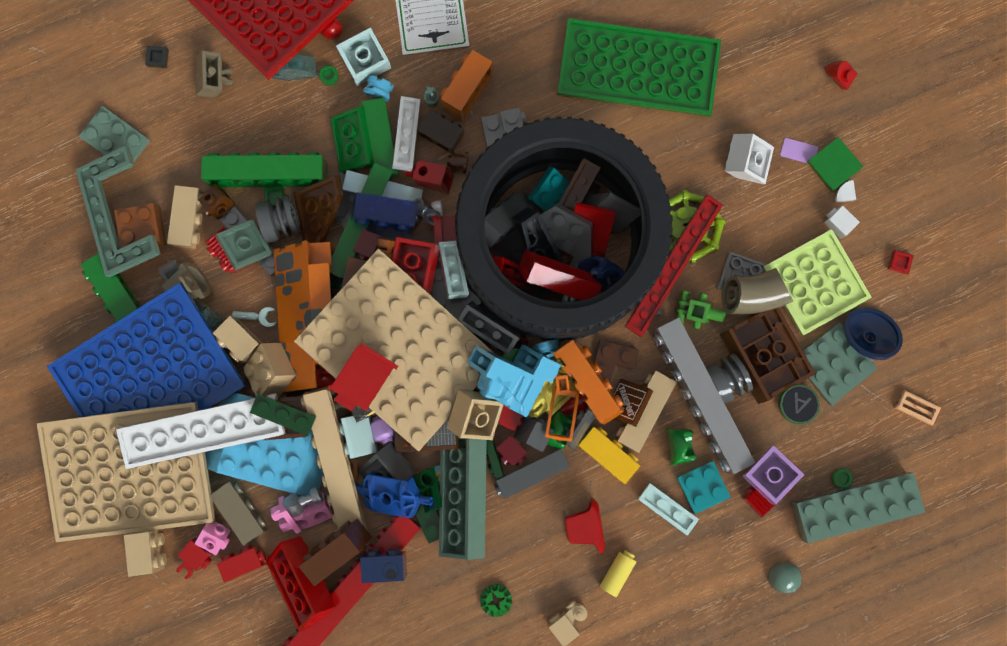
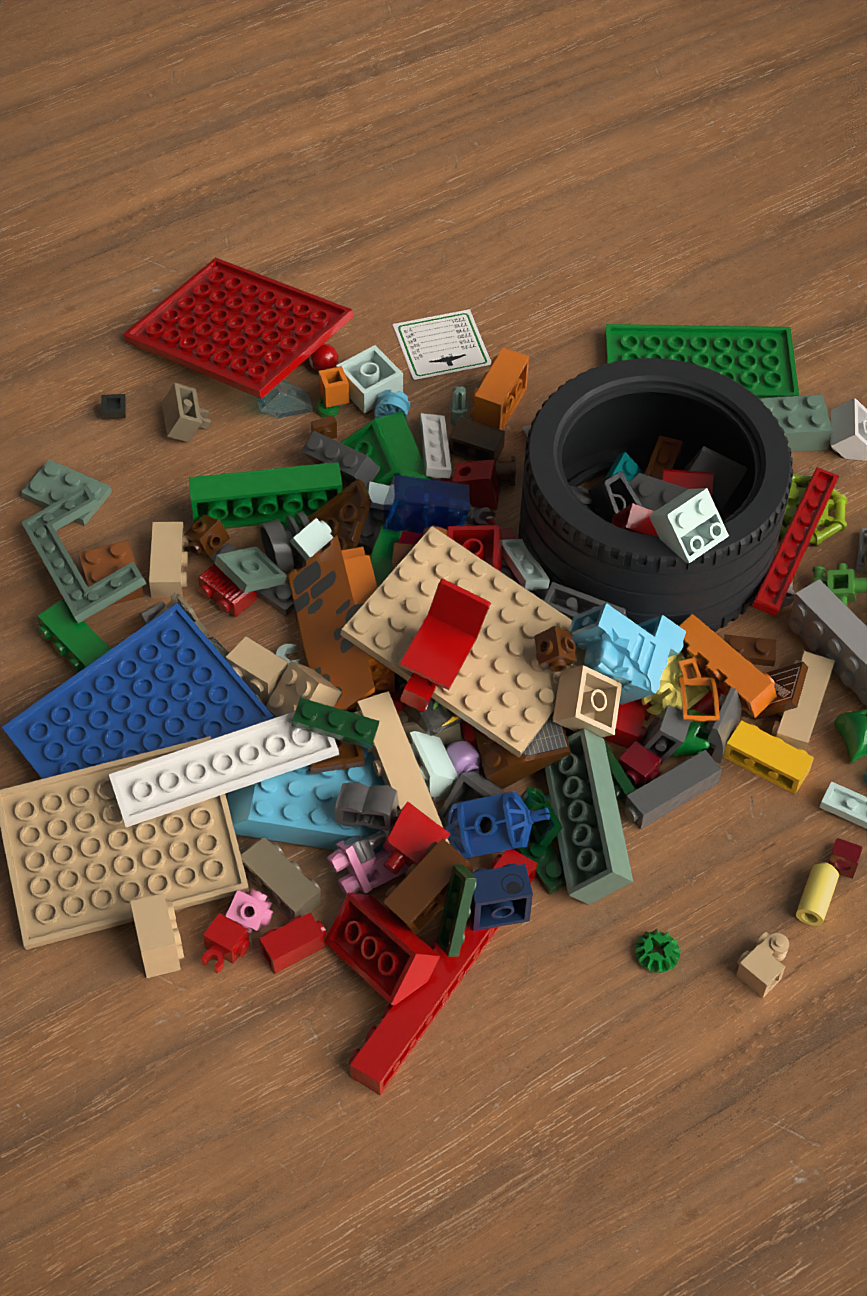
camera: 10 degrees left, 30 degrees down
(290, 231) = (312, 538): none -> light aqua brick
(300, 480) = (366, 806): none -> flat silver brick
(321, 103) = (325, 426): none -> reddish brown plate
(328, 141) = (352, 463): none -> dark grey brick
(329, 511) = (410, 838): none -> red torso
(331, 66) = (333, 386): none -> orange brick
(350, 579) = (456, 910): none -> dark green plate
(455, 376) = (555, 649): none -> reddish brown brick
(570, 304) = (689, 524): none -> light aqua slope
(586, 527) = (760, 842): red piece -> none
(645, 545) = (845, 857): none -> dark red bracket
(697, 143) = (803, 420): none -> sand green brick

